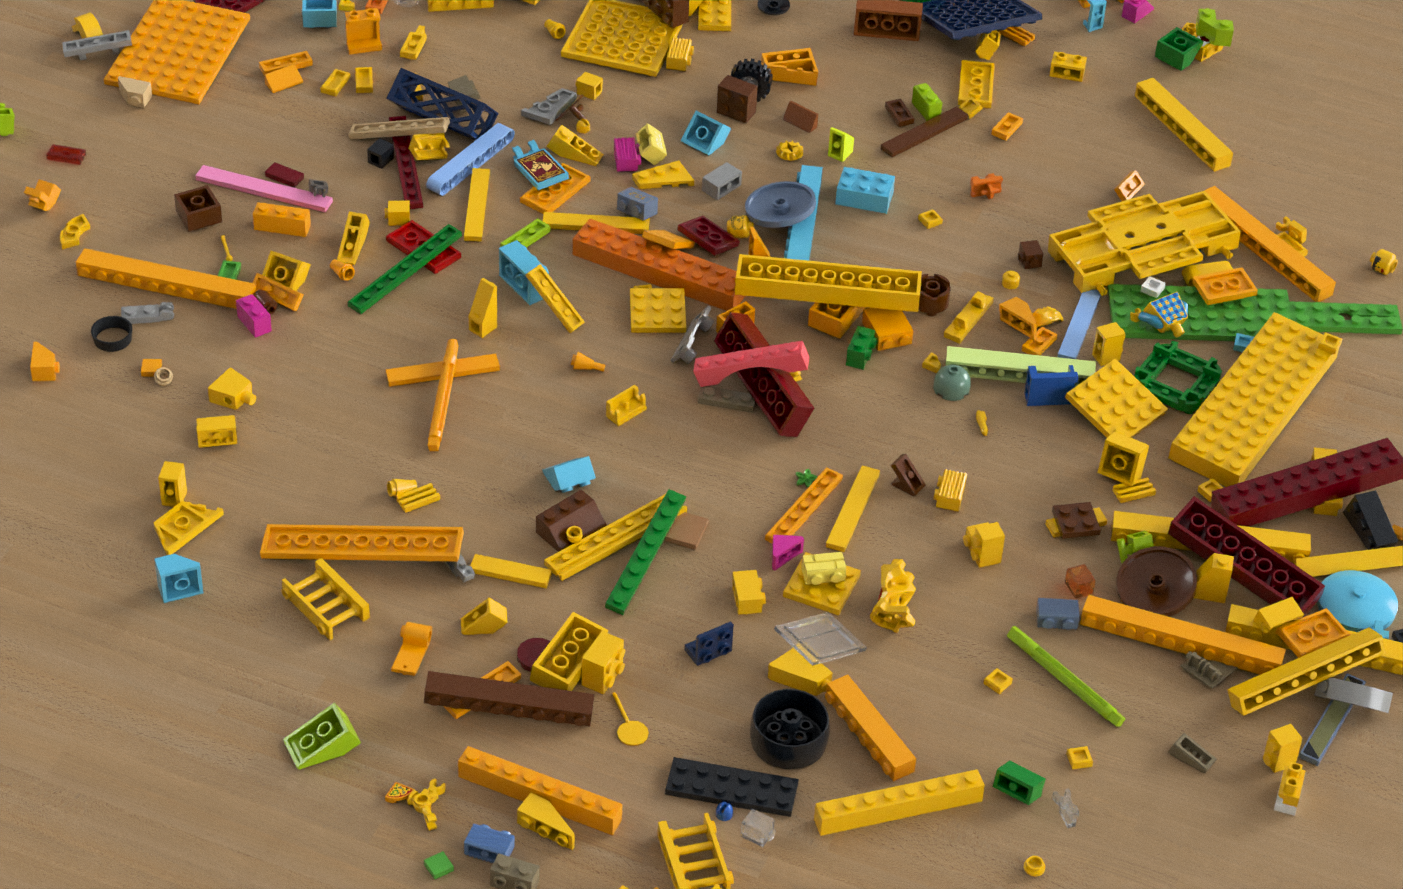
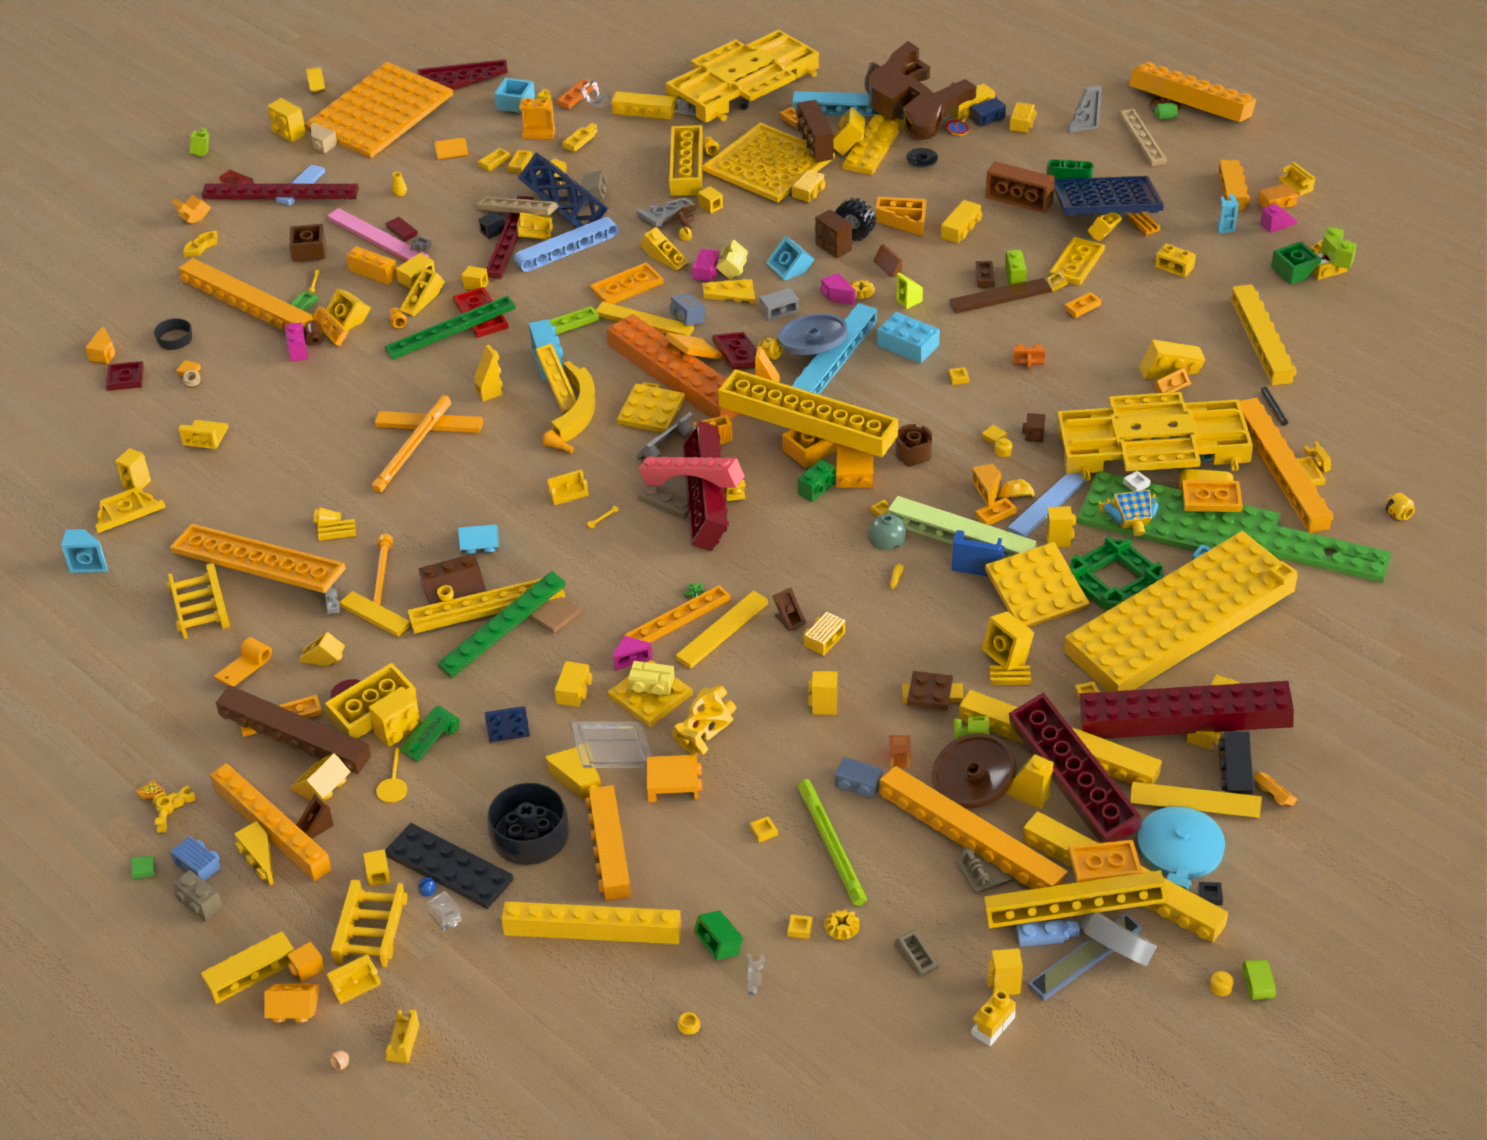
camera: 25 degrees right, 0 degrees up
(85, 388) = (124, 375): none -> dark red tile
(87, 78) = (286, 120): none -> yellow brick
(97, 43) = (302, 94): light grey hinge -> none
(127, 158) = (271, 191): none -> dark red plate
(142, 147) = (309, 176): none -> light blue tile
(148, 313) = (214, 323): light grey hinge -> none
(231, 390) = (237, 401): yellow torso -> none
(254, 128) = (398, 185): none -> yellow cone
(300, 60) = (470, 135): light orange plate -> none
(322, 738) = (117, 724): lime slope -> none
(332, 217) = (410, 270): none -> yellow brick
(477, 204) = (549, 284): yellow tile -> none
(477, 500) = (384, 543): none -> light orange piece
(539, 166) = (621, 261): tile -> none
(543, 48) = (686, 160): none -> yellow brick
(562, 738) = (321, 778): none -> yellow slope
(583, 772) = (316, 817): none -> reddish brown slope
(589, 310) = (581, 413): none -> yellow arch
(638, 670) = (429, 730): none -> green door
(667, 437) = (591, 524): none -> yellow hinge
(669, 805) = (376, 867): none -> yellow brick
(770, 155) = (837, 289): none -> dark pink slope
(849, 64) = (961, 221): none -> yellow brick
(892, 653) = (673, 775): none -> light orange panel
(968, 317) = (941, 474): yellow hinge -> none
(995, 269) = (993, 433): none -> yellow tile
(1115, 164) = (1167, 357): none -> yellow wedge
(1120, 752) = (843, 931): none -> yellow gear
(1227, 190) = (1275, 407): none -> black bar
(1278, 614) = (1075, 832): yellow hinge -> none
(1289, 707) = (1046, 932): none -> light blue hinge

